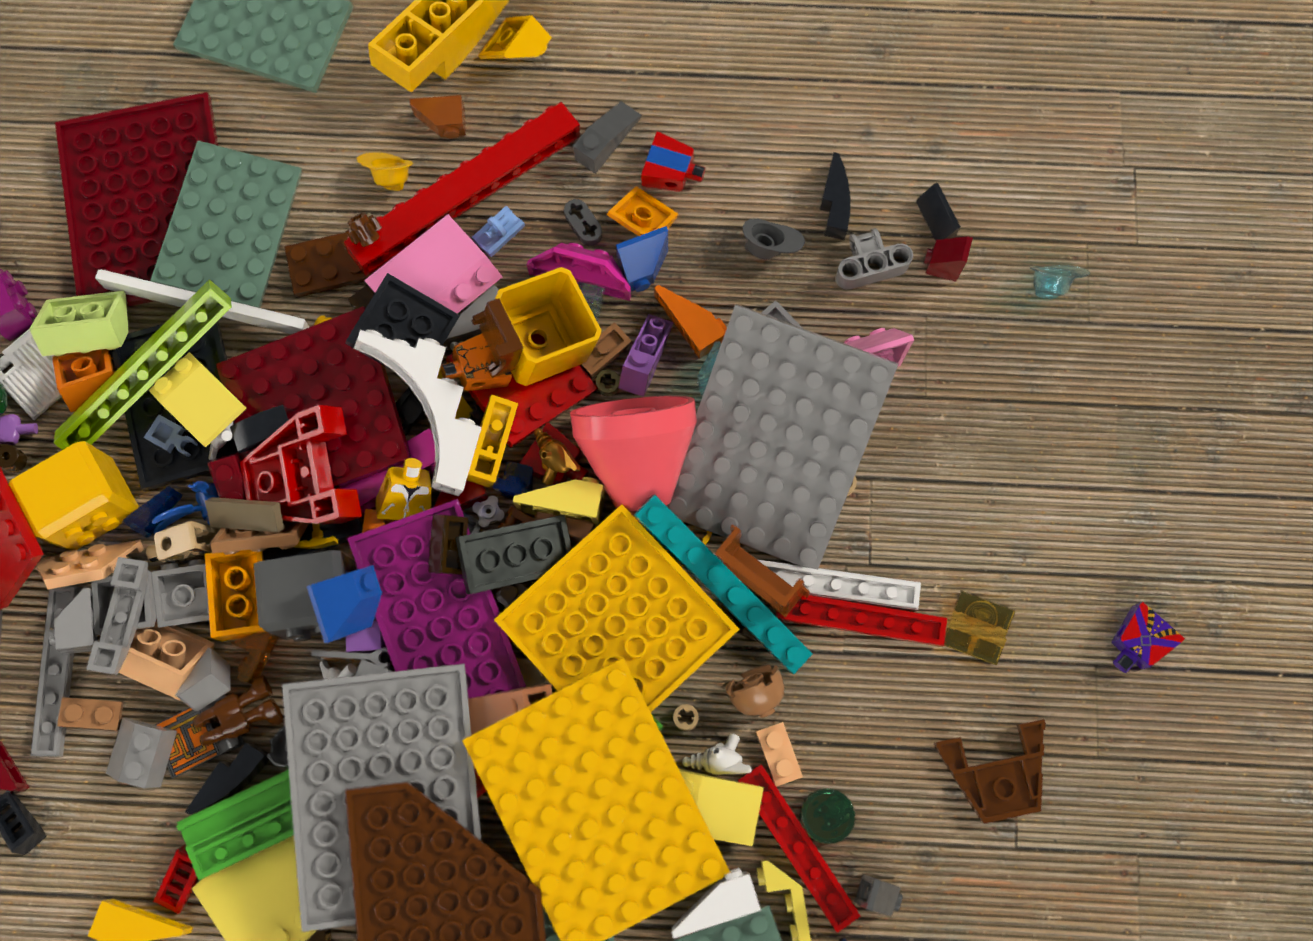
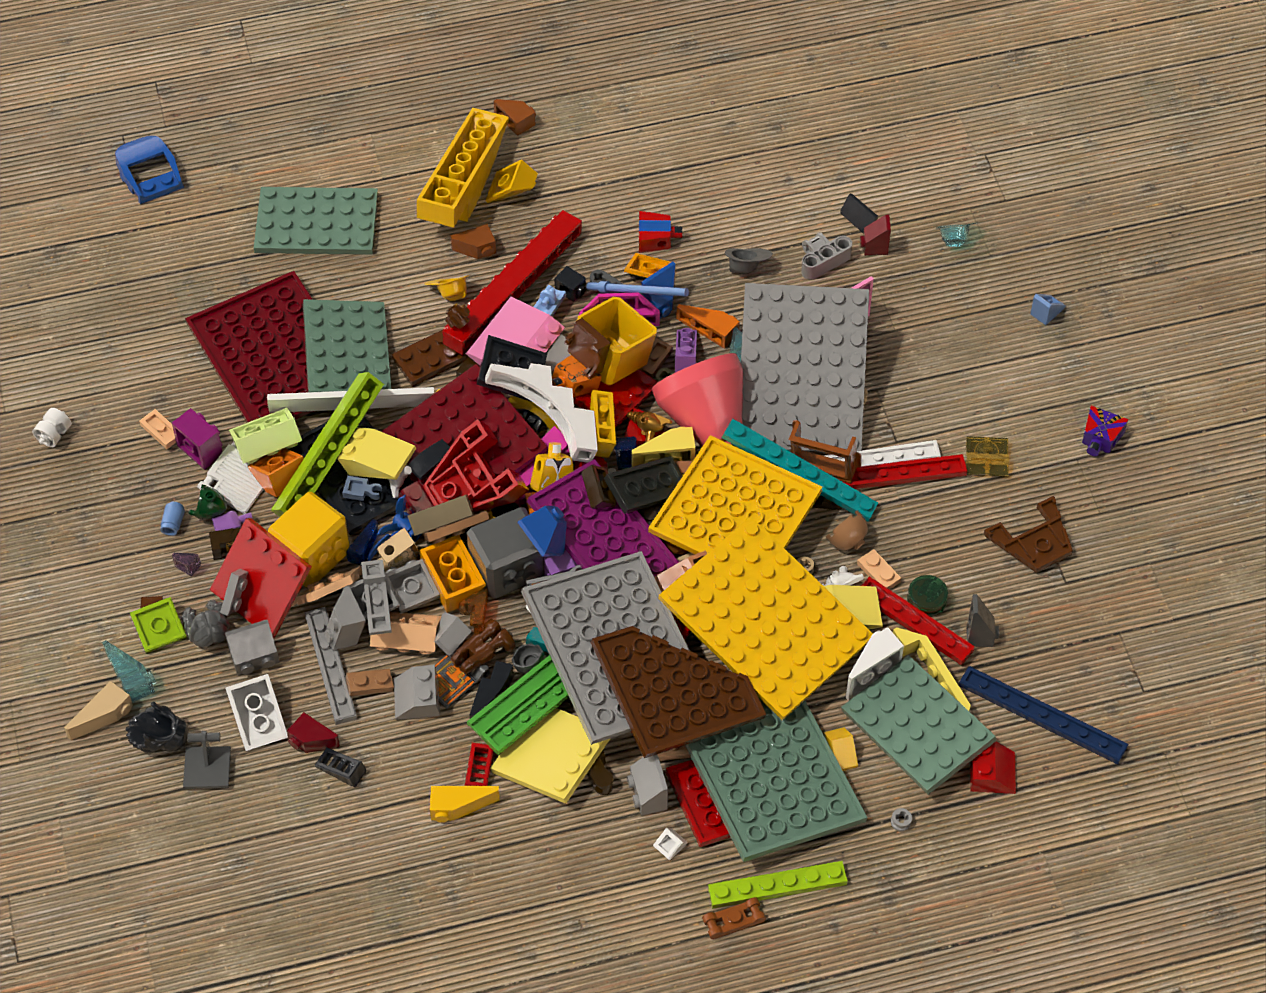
camera: 20 degrees left, 20 degrees down
(536, 210) = (570, 282): none -> black brick
(577, 231) = (607, 287): none -> medium blue bar
(605, 136) = (600, 227): dark grey slope -> none
(836, 199) = (784, 223): black slope -> none
(1135, 426) = (1046, 307): none -> medium blue slope

